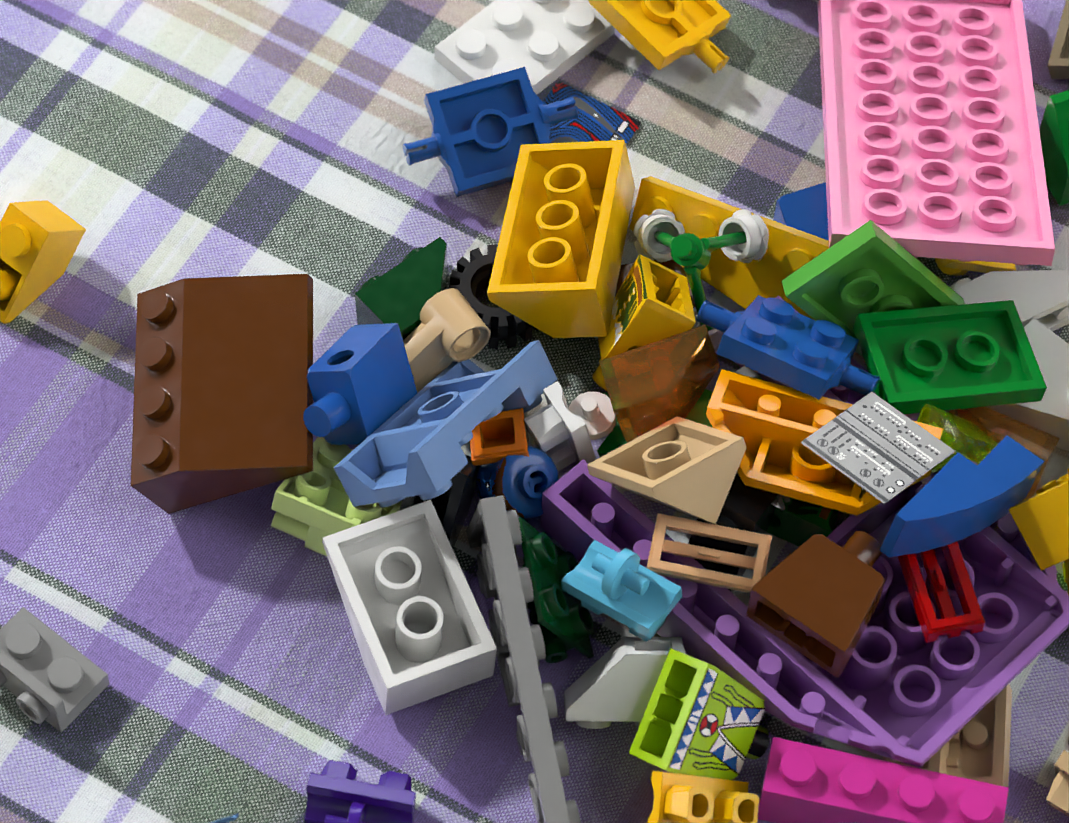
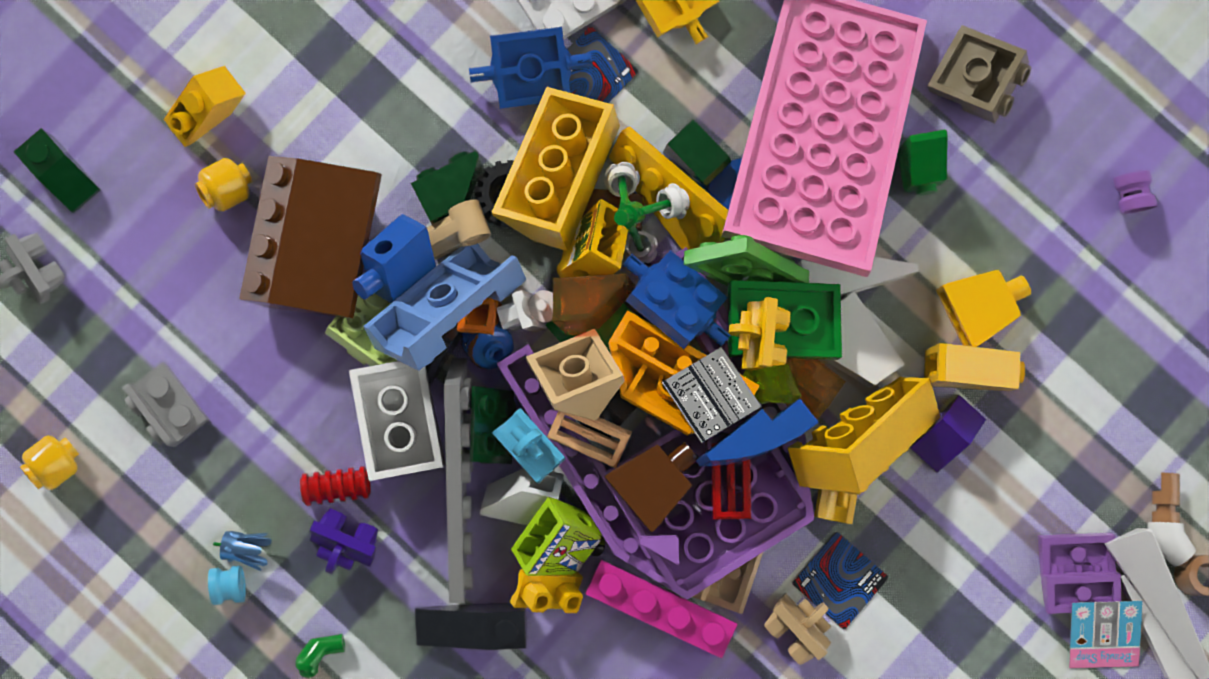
camera: 10 degrees right, 25 degrees up
(73, 353) = (223, 184): none -> yellow head
(330, 730) = (335, 486): none -> red piece
(757, 181) = (697, 153): none -> dark green slope
(863, 682) = (664, 545): none -> medium lavender slope
(921, 360) = (757, 334): none -> yellow hips

